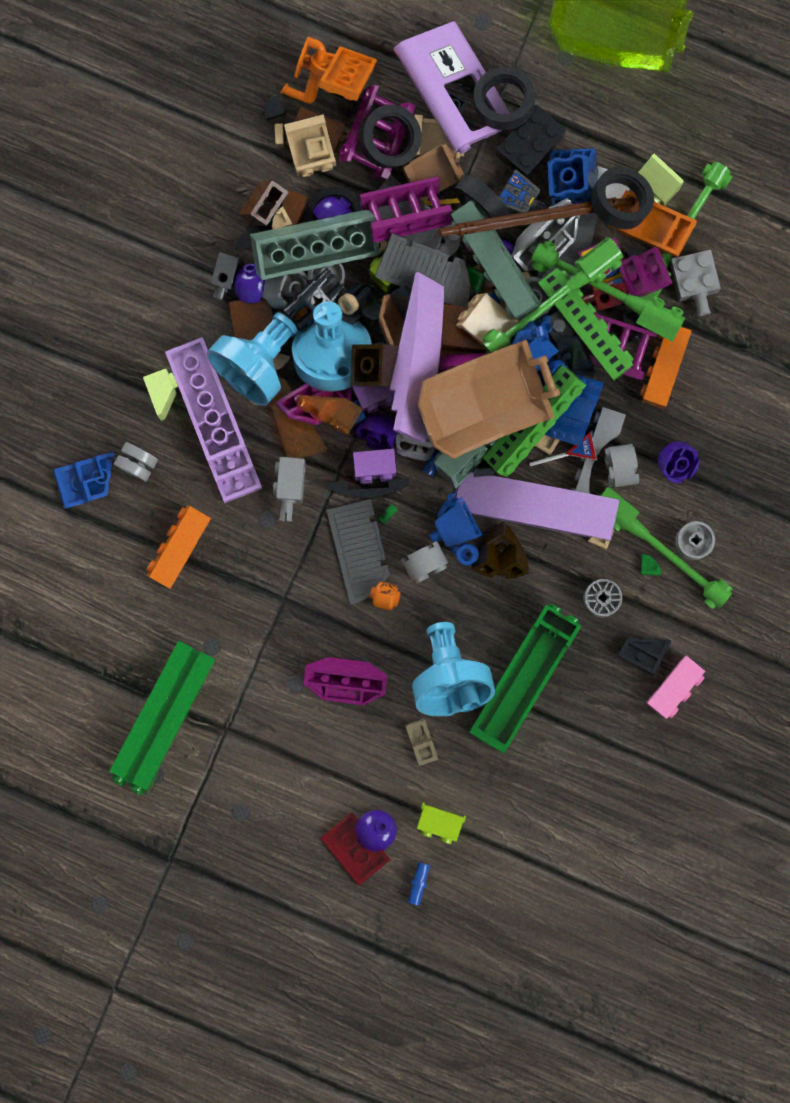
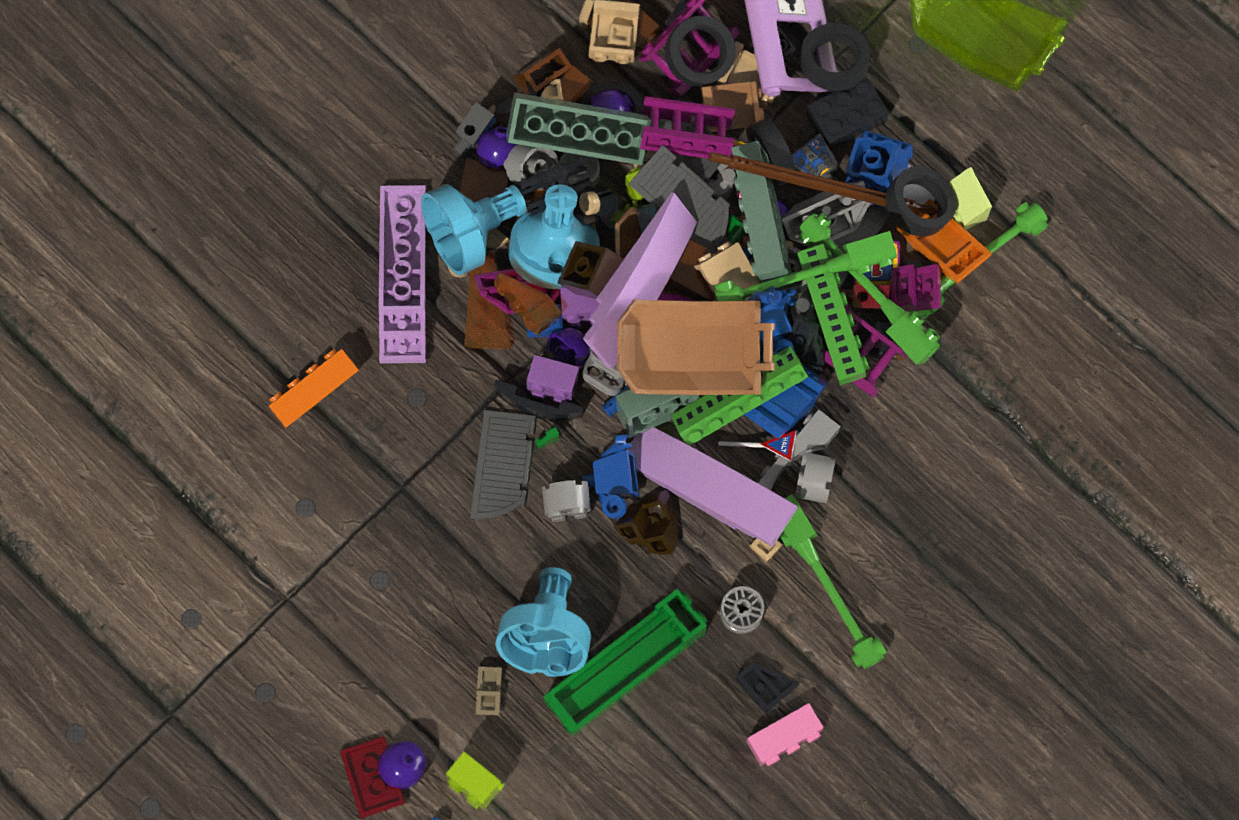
camera: 20 degrees right, 10 degrees down
(84, 480) = (242, 285): blue slope -> none
(135, 462) = (303, 284): light grey wheel -> none
(161, 719) = (220, 559): green brick -> none
(162, 391) = (360, 222): yellowish green slope -> none
(290, 484) = (455, 366): light grey brick -> none
(345, 680) = (431, 593): magenta wedge -> none
(385, 596) = (510, 521): orange head -> none
(483, 470) = (666, 429): black tile -> none
(547, 444) = (745, 427): tan tile -> none
(649, 566) = (806, 597): green tile -> none
(665, 369) = (901, 395): orange brick -> none
(678, 461) = (878, 496): dark purple cylinder -> none
(695, 279) = (968, 315): light grey brick -> none
(702, 533) = (876, 587): light grey wheel -> none

